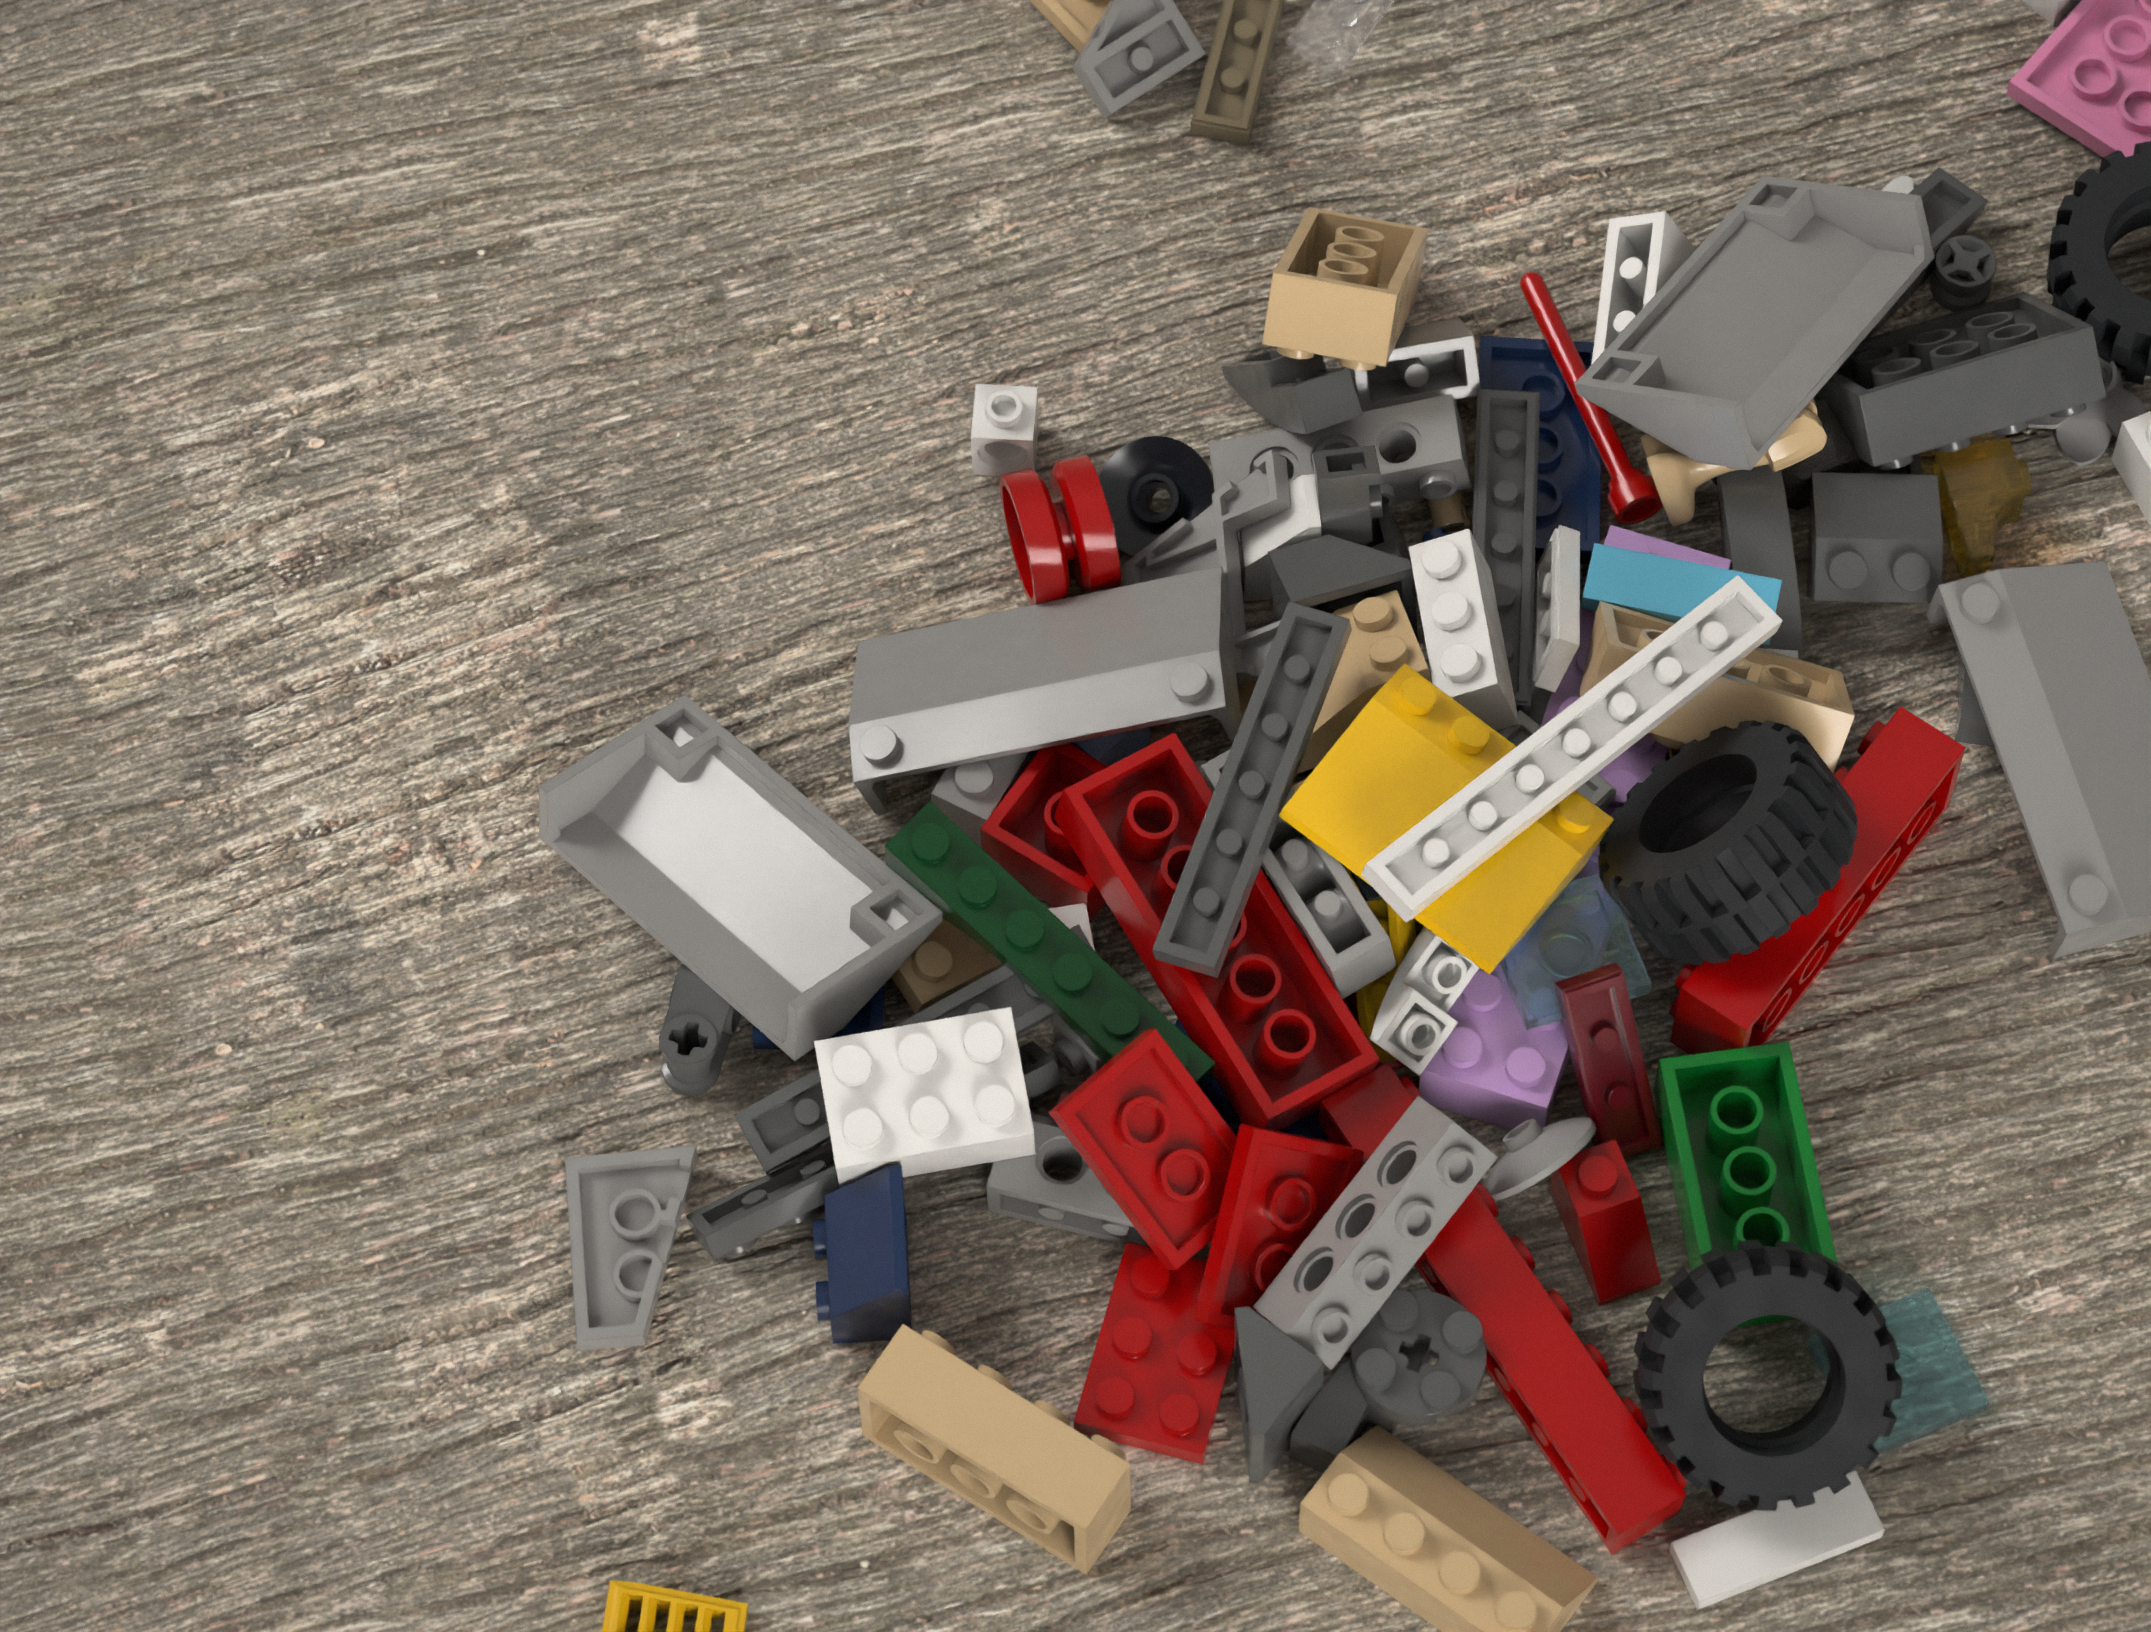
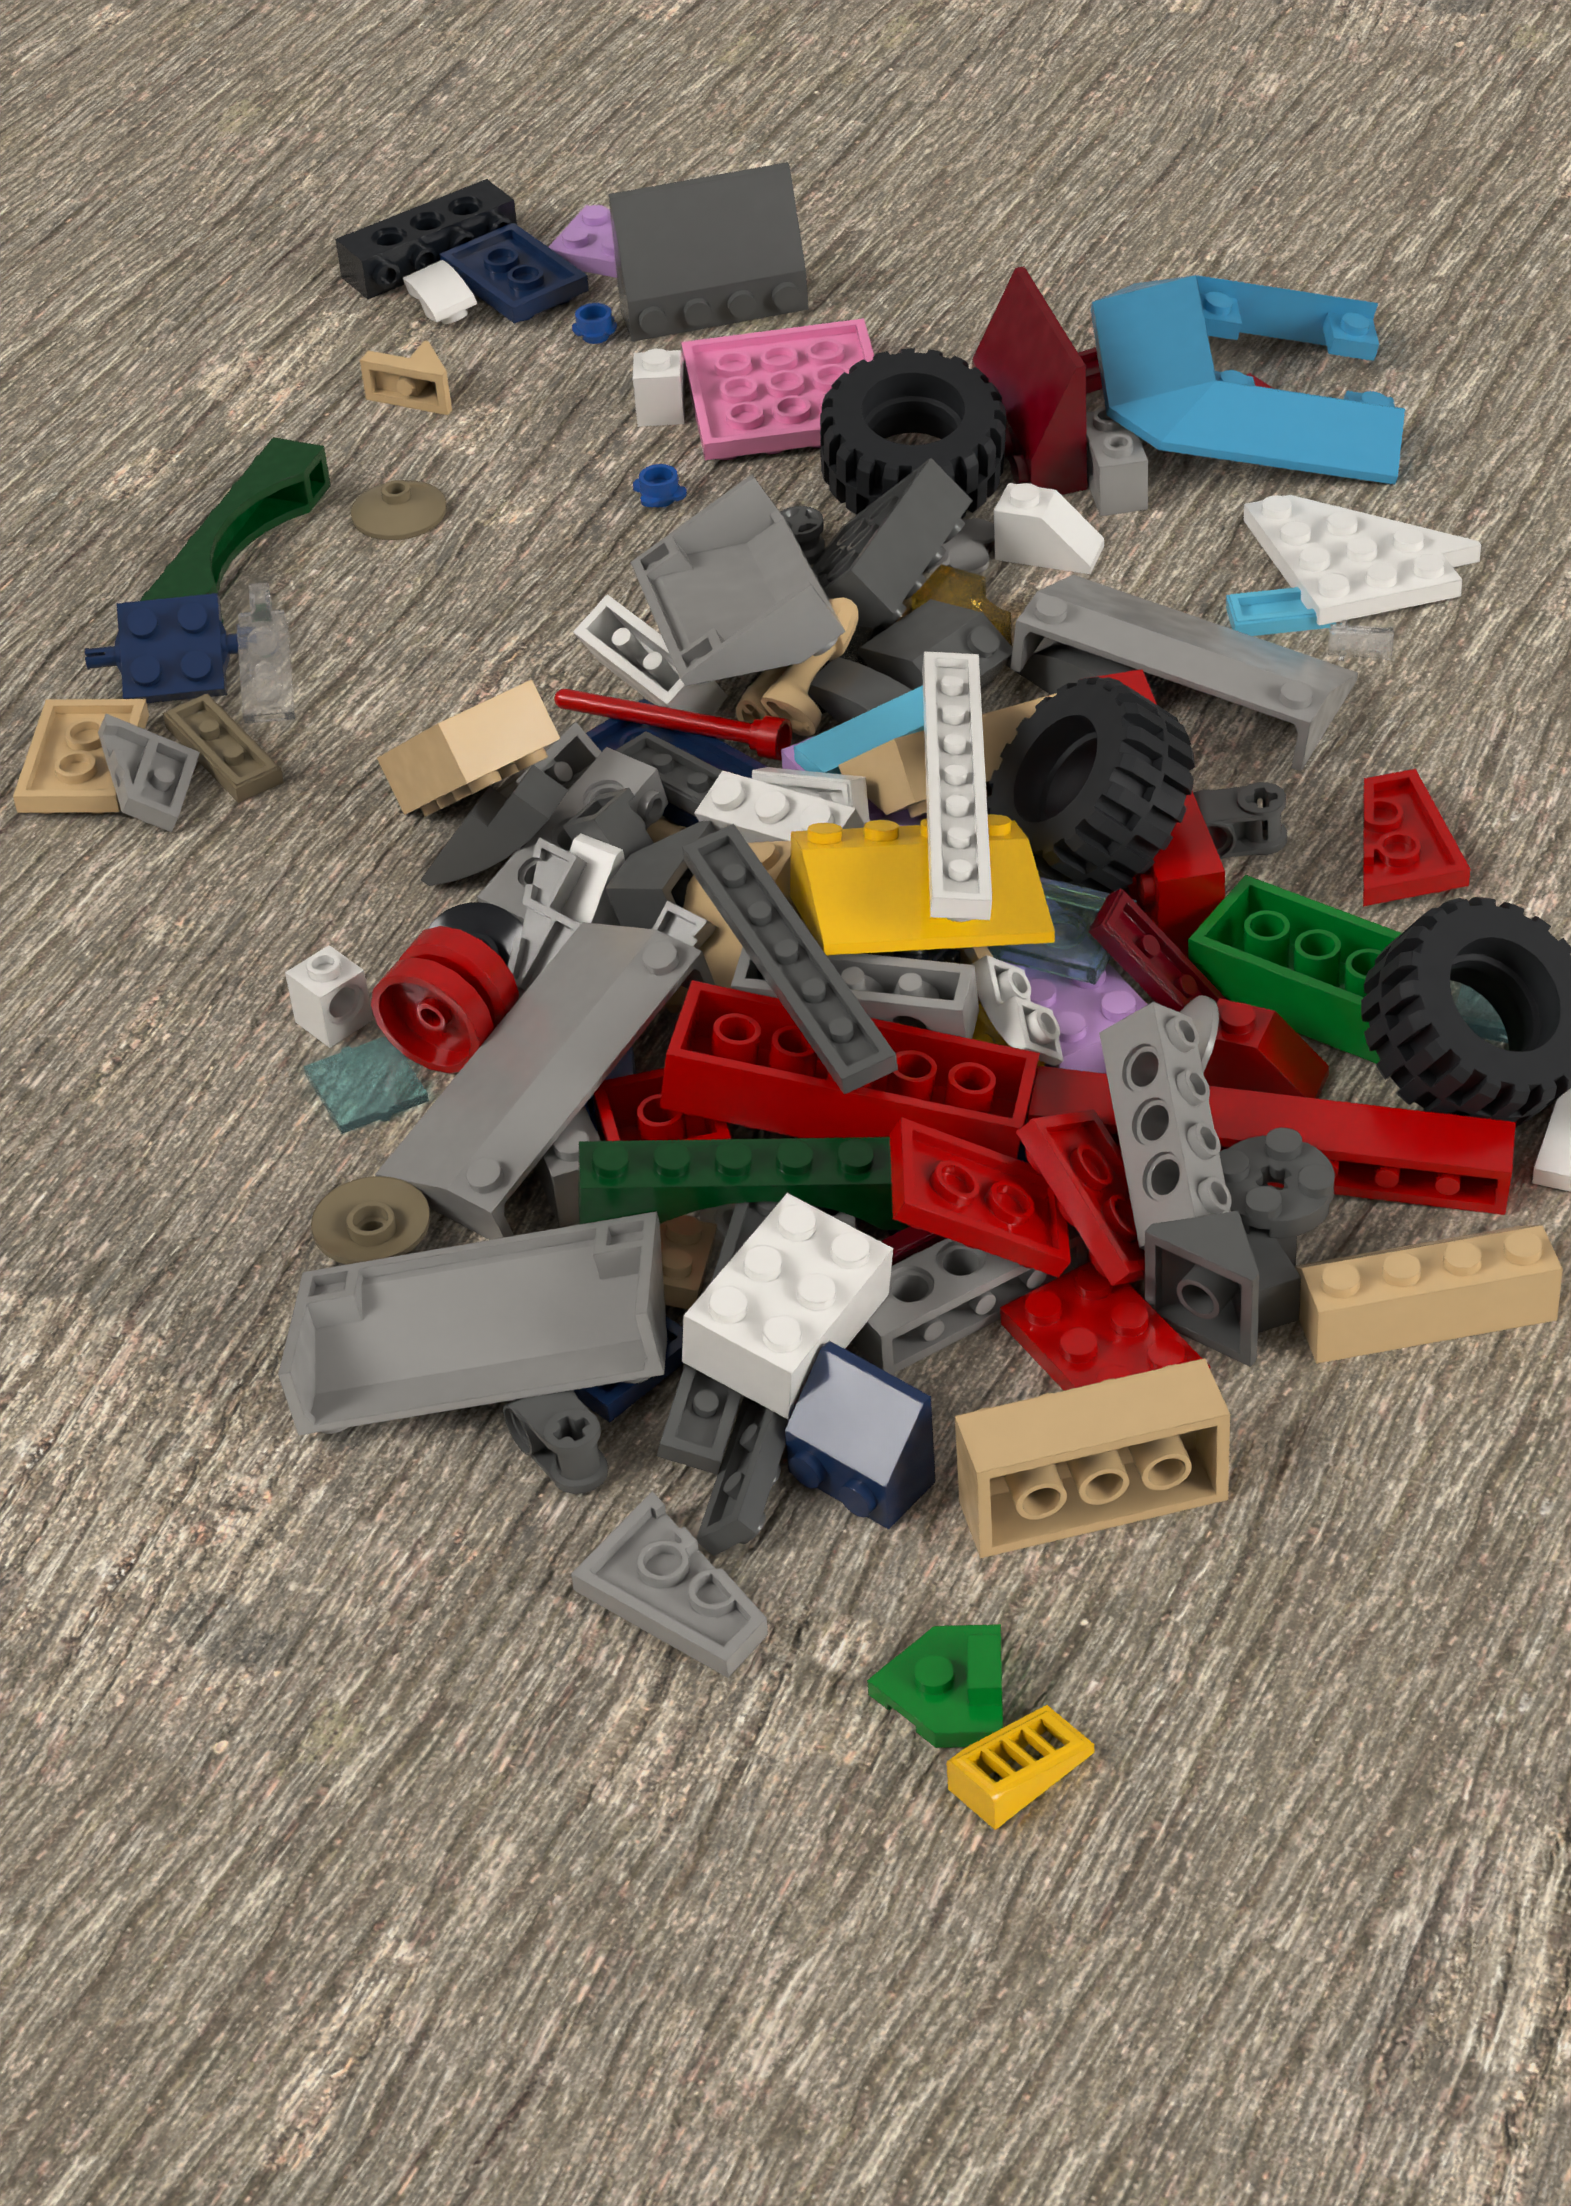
camera: 45 degrees left, 20 degrees down
(707, 1517) = (946, 1684): none -> green plate
(787, 667) = (370, 1220): none -> dark tan dish
(951, 541) = (365, 1084): none -> clear light blue piece
(1900, 962) = (1238, 822): none -> dark grey piece
(1924, 79) = (659, 486): none -> blue plate
(2015, 1127) = (1406, 841): none -> red wing

